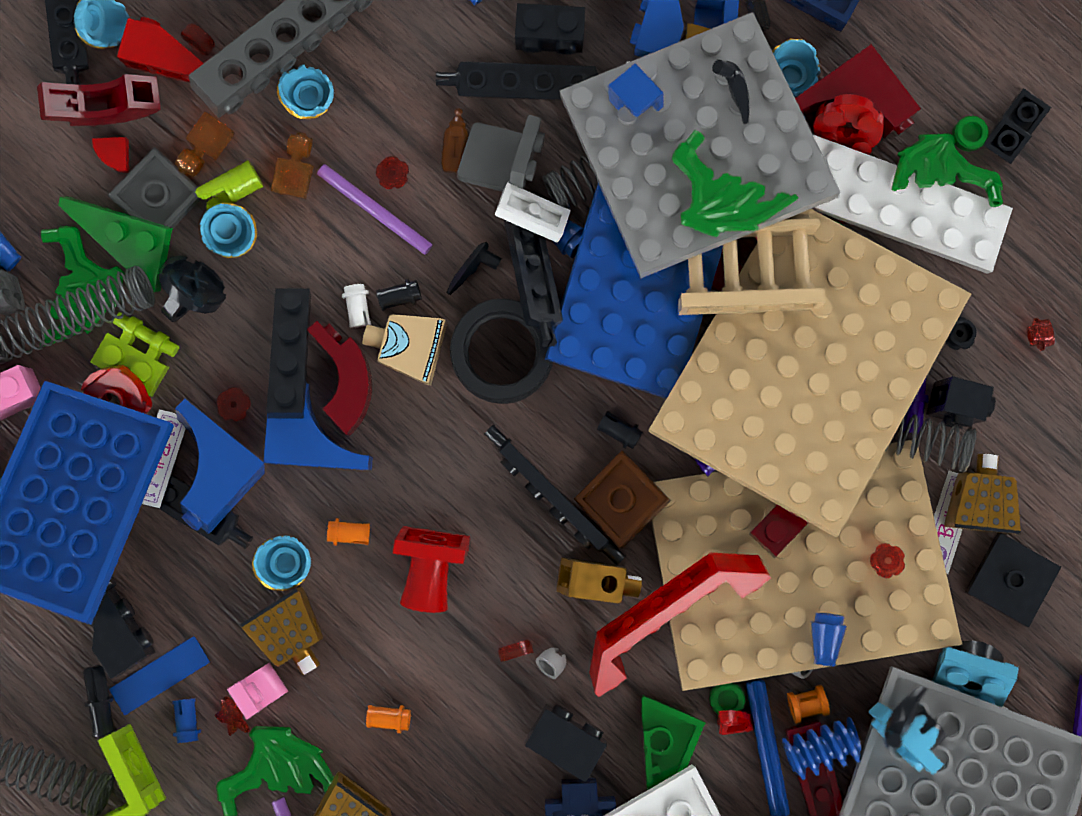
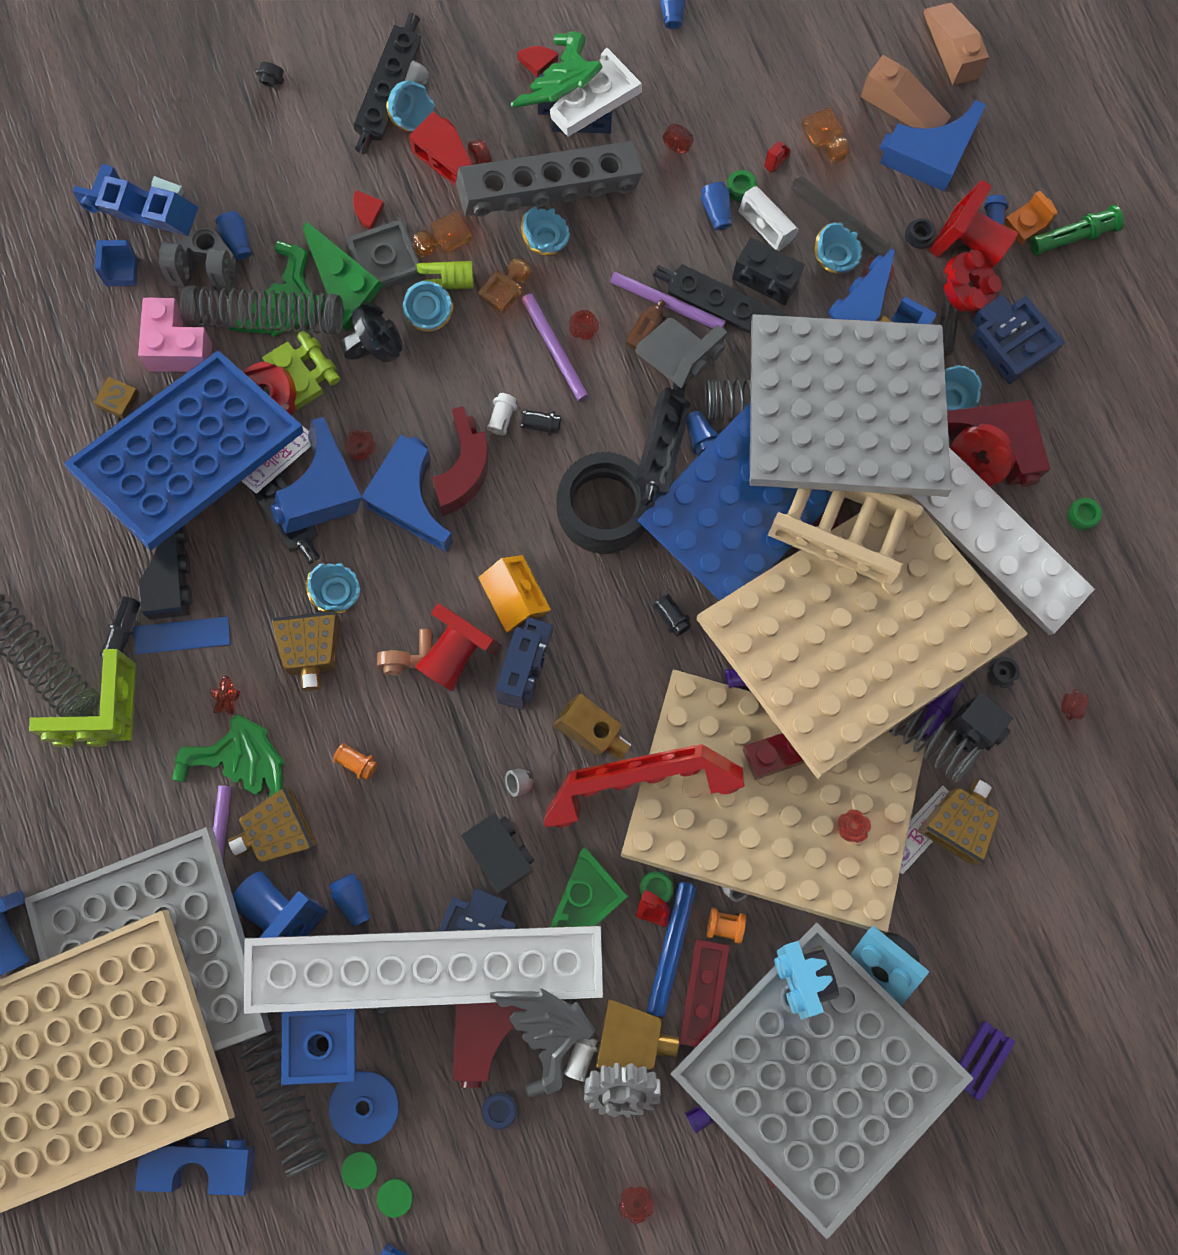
camera: 20 degrees right, 10 degrees down
(102, 103) = (380, 169): dark red arch -> none
(185, 720) = (183, 680): blue pin -> none
(257, 690) = (257, 682): bright pink plate -> none
(289, 353) = (426, 422): black plate -> none
(348, 532) = (401, 591): orange pin -> none
(378, 606) = (394, 661): none -> nougat plate
(409, 345) = (529, 463): tan torso -> none
(457, 480) = (513, 592): none -> light orange panel
(467, 106) = (670, 302): none -> medium lavender bar
(470, 266) = (619, 422): black bar -> none
(501, 548) = (523, 663): none -> dark blue piece
(515, 650) = (492, 755): clear red tile -> none
(532, 212) = (684, 401): white plate -> none
(562, 508) = (591, 655): black plate -> none
(622, 499) = (646, 671): reddish brown plate -> none
(635, 92) = (815, 335): blue panel -> none
(722, 202) = (850, 452): green animal -> none
(736, 84) = (902, 369): black bar -> none
(823, 748) = (720, 965): blue piece -> none
(827, 637) = (770, 864): blue cone -> none
(902, 718) = (806, 951): black bar -> none
(937, 160) = (1049, 520): green animal -> none
(1013, 579) = (958, 906): black plate -> none
(1016, 126) = (1127, 525): black slope -> none

